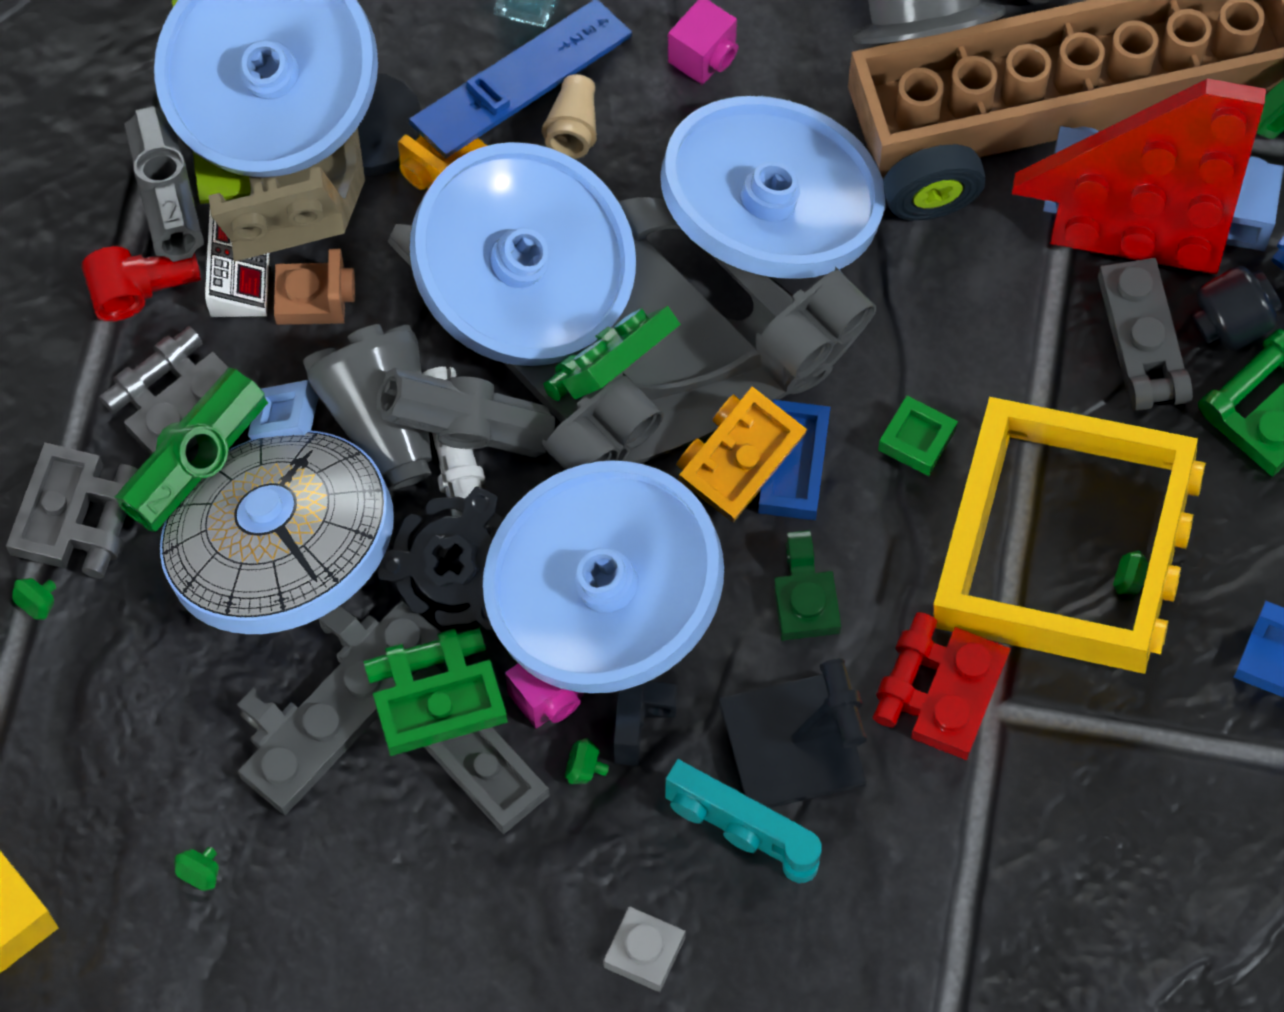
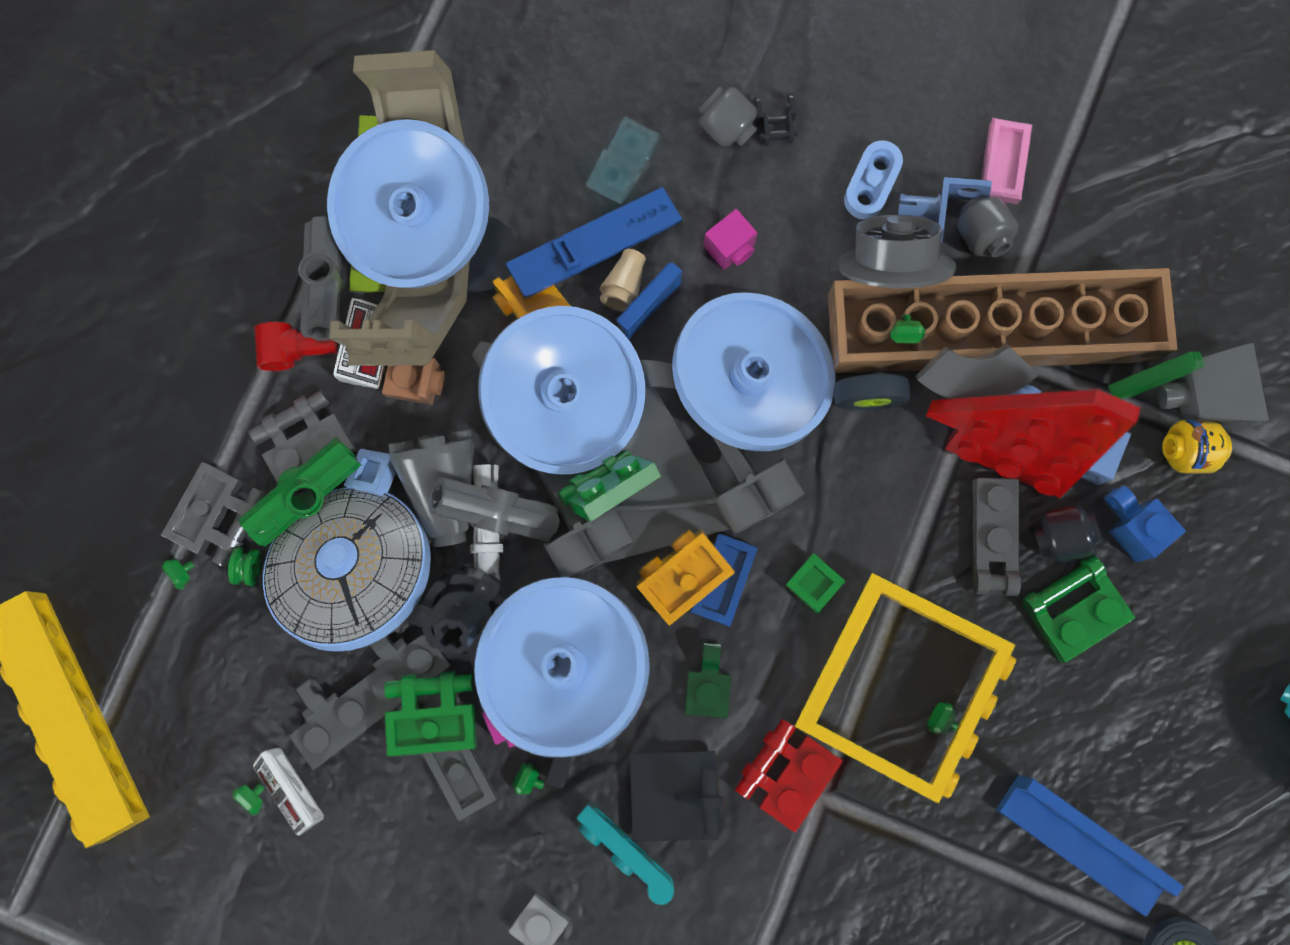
camera: 15 degrees right, 15 degrees up
(131, 566) = (244, 567): none -> green bush
(249, 845) = (288, 790): none -> white slope
(615, 127) = (649, 300): none -> blue tile
(961, 90) = (907, 331): none -> green rock
(1036, 132) = (978, 376): none -> dark grey tile

